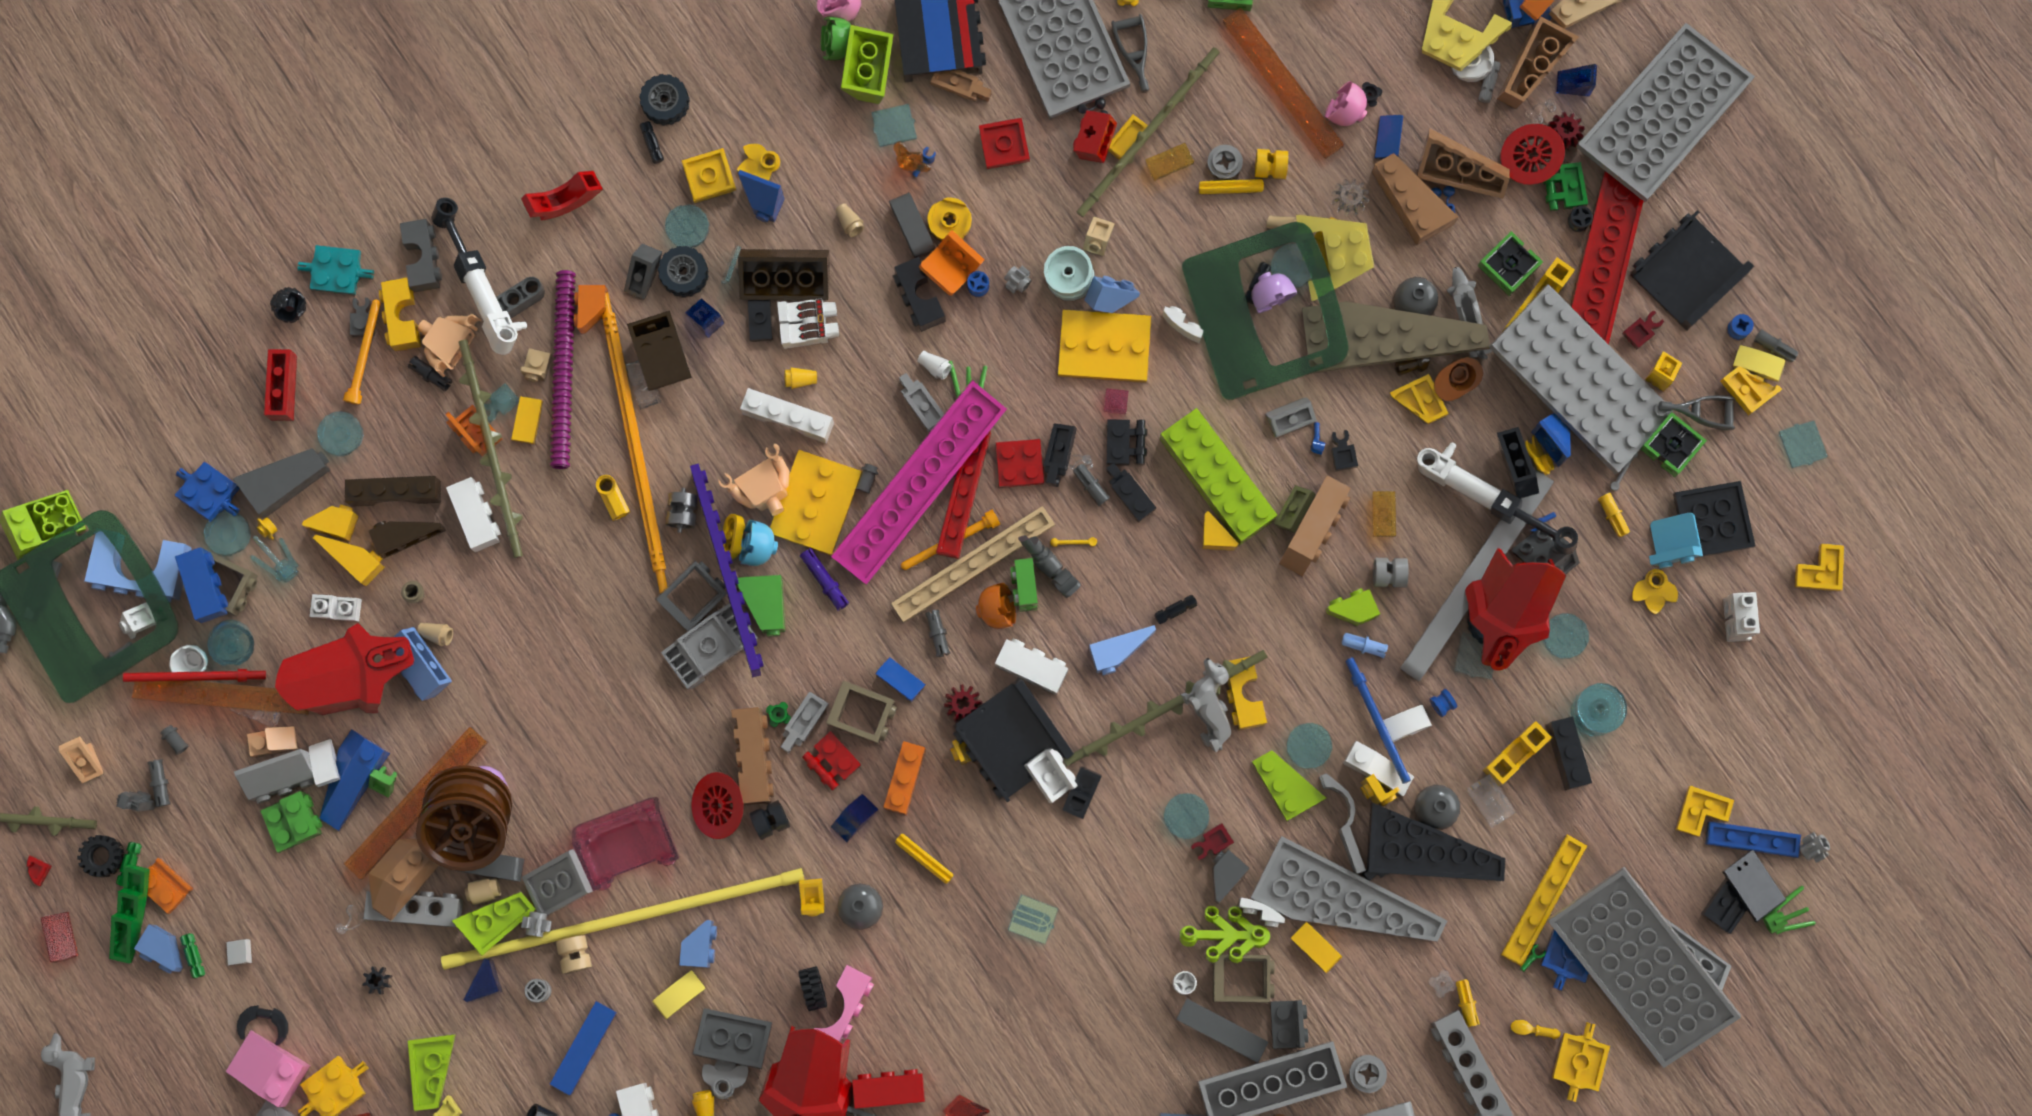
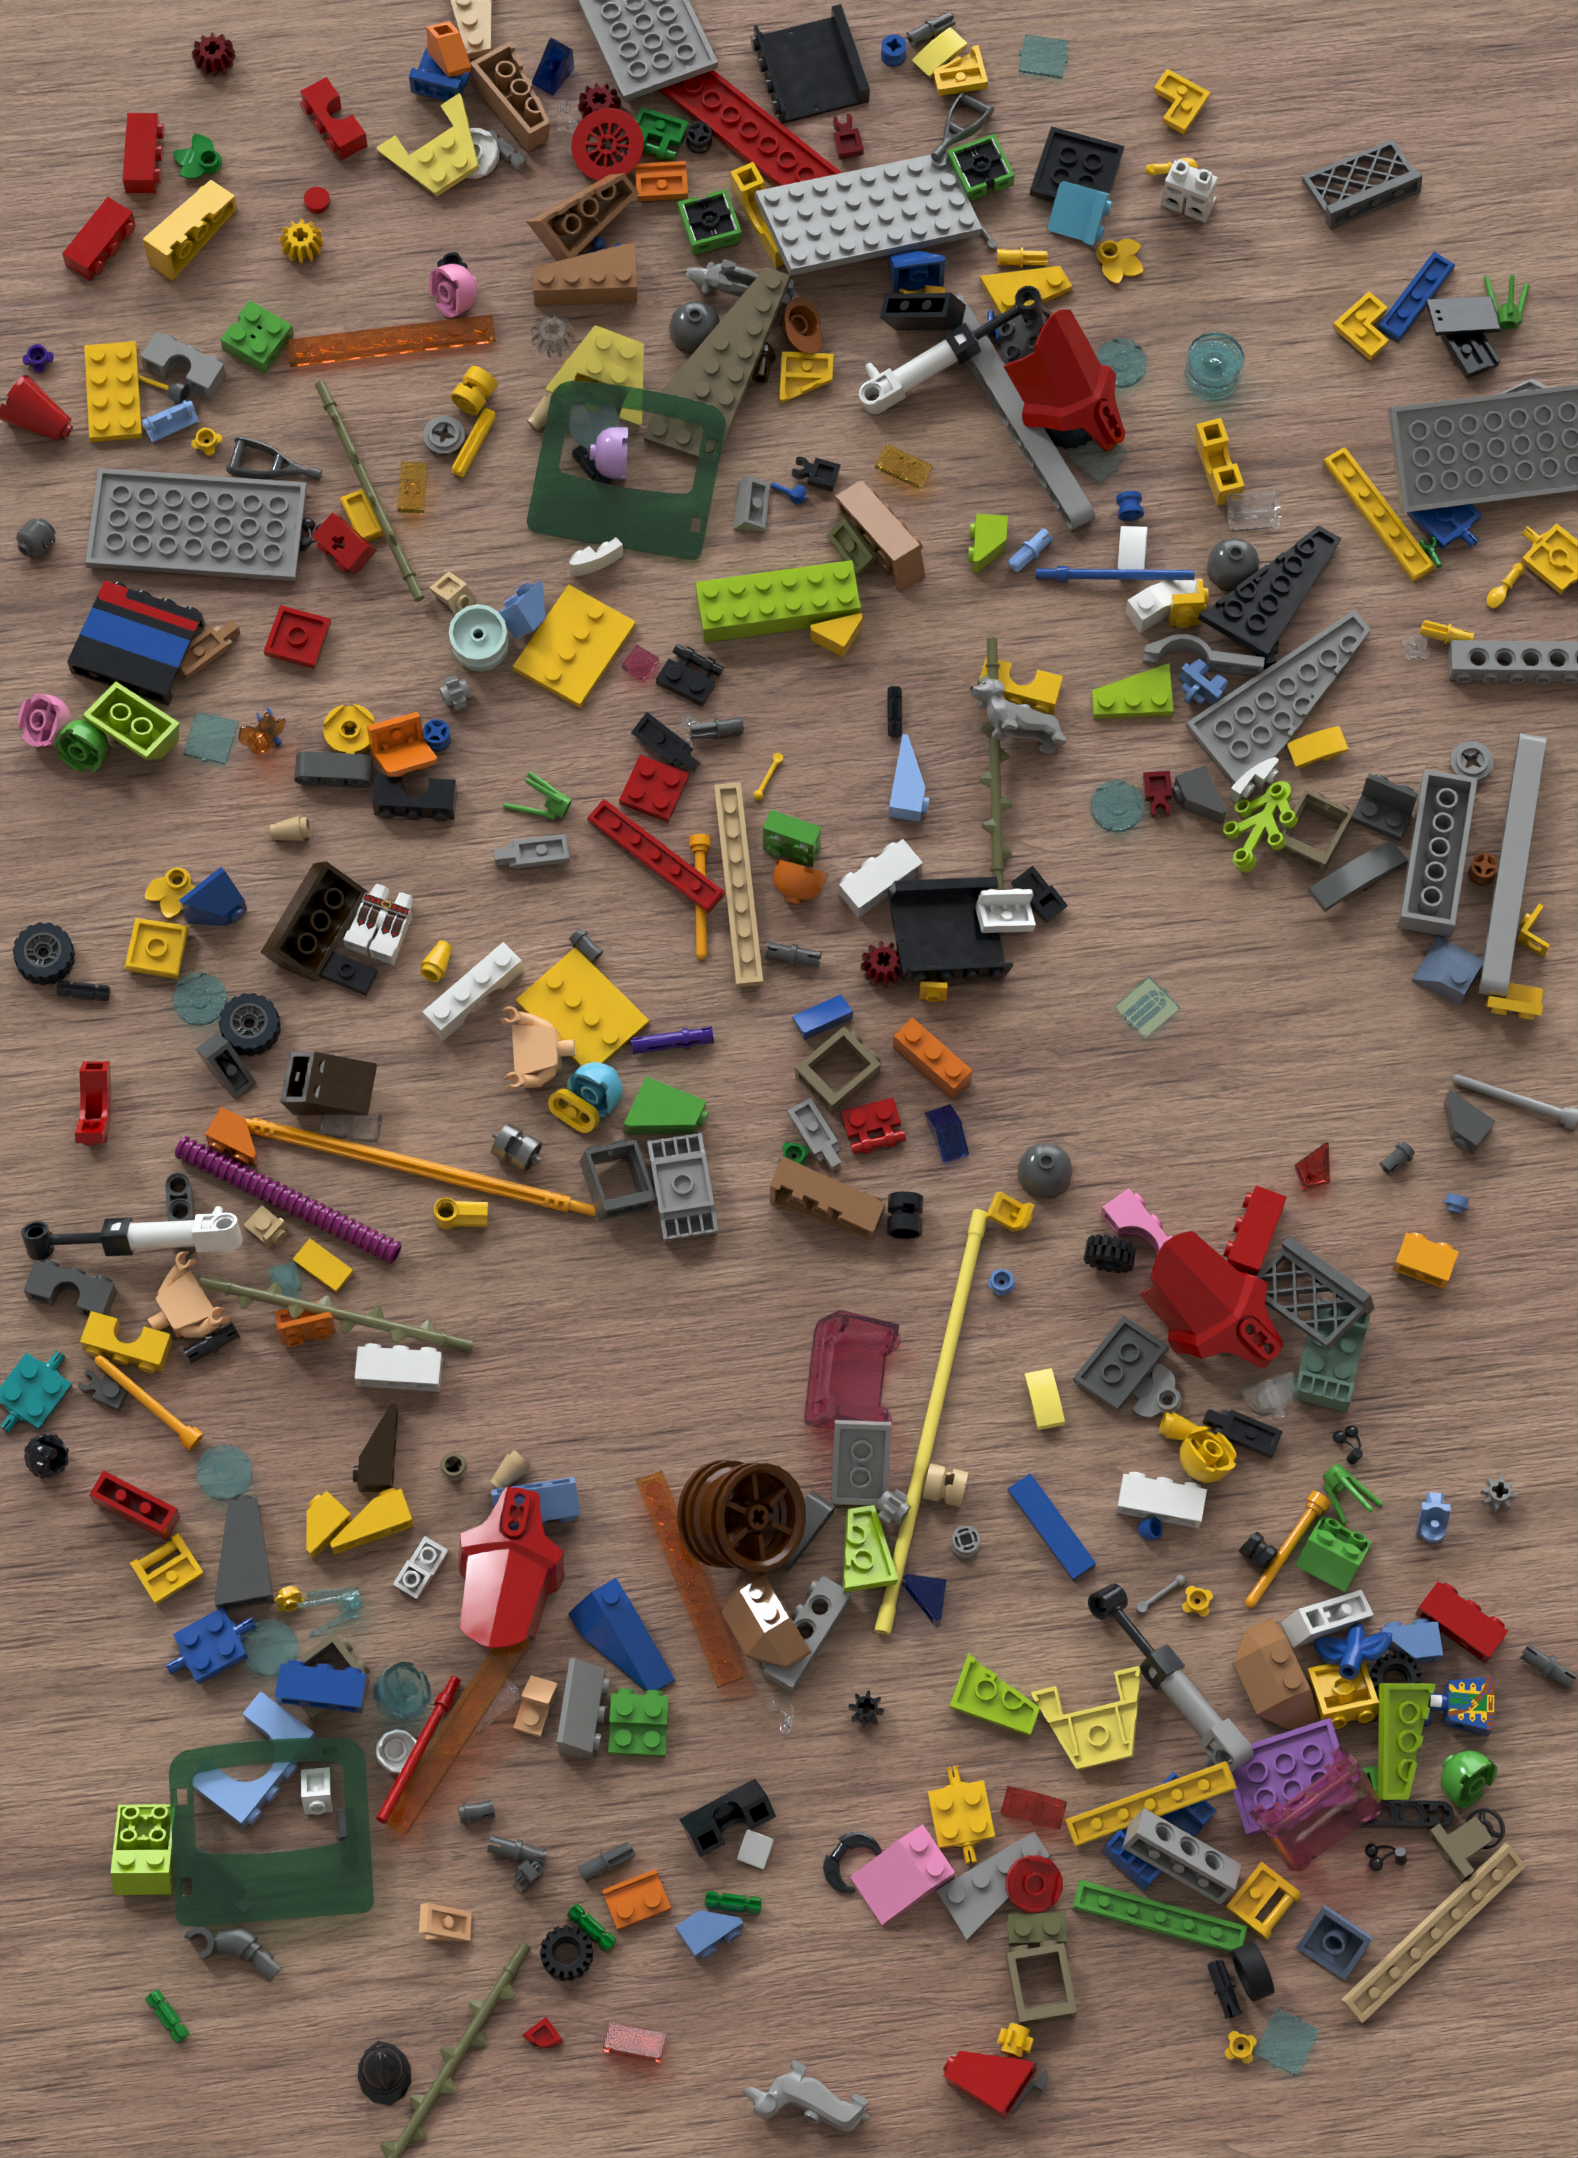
camera: 65 degrees left, 10 degrees down
(130, 913) = (650, 1948): green slope -> none
(180, 850) = (606, 1861): none -> dark grey axle
(236, 908) = (742, 1805): none -> black arch
(246, 438) = (172, 1575): none -> yellow plate
(323, 763) = (598, 1652): white slope -> none
(381, 782) = (648, 1603): bright green tile -> none
(406, 489) = (333, 1421): dark brown arch -> none
(482, 890) = (825, 1551): tan brick -> none
(696, 947) = (1004, 1354): medium blue slope -> none
(705, 317) = (313, 1025): clear blue slope -> none
(719, 822) = (855, 1285): red piece -> none
(729, 578) = (618, 1126): dark purple plate -> none
(731, 264) = (274, 967): clear light blue piece -> none
(749, 918) = (998, 1275): none -> medium blue plate
(918, 482) = (622, 892): dark pink plate -> none
(924, 858) = (1027, 1082): yellow axle -> none
(935, 365) = (500, 819): white cone -> none
(1050, 566) = (806, 804): dark grey piece -> none
(1130, 493) = (746, 696): black hinge -> none
(1184, 983) = (1292, 882): white wheel -> none
(1309, 745) = (1105, 654): clear light blue tile -> none
(1324, 822) = (1200, 688): none -> medium blue hips
(1388, 136) = (508, 269): blue slope -> none
(1398, 572) = (969, 486): light grey wheel -> none
(1526, 210) = (661, 181): none -> orange plate
(1568, 753) = (1245, 415): black brick -> none
(1591, 530) = (1004, 286): none -> yellow wing
(1663, 371) = (901, 141): yellow slope -> none
(1765, 600) = (1153, 169): none -> yellow piece
(1815, 847) = (1453, 243): light grey gear -> none
(1818, 762) = (1371, 197): none -> dark grey fence

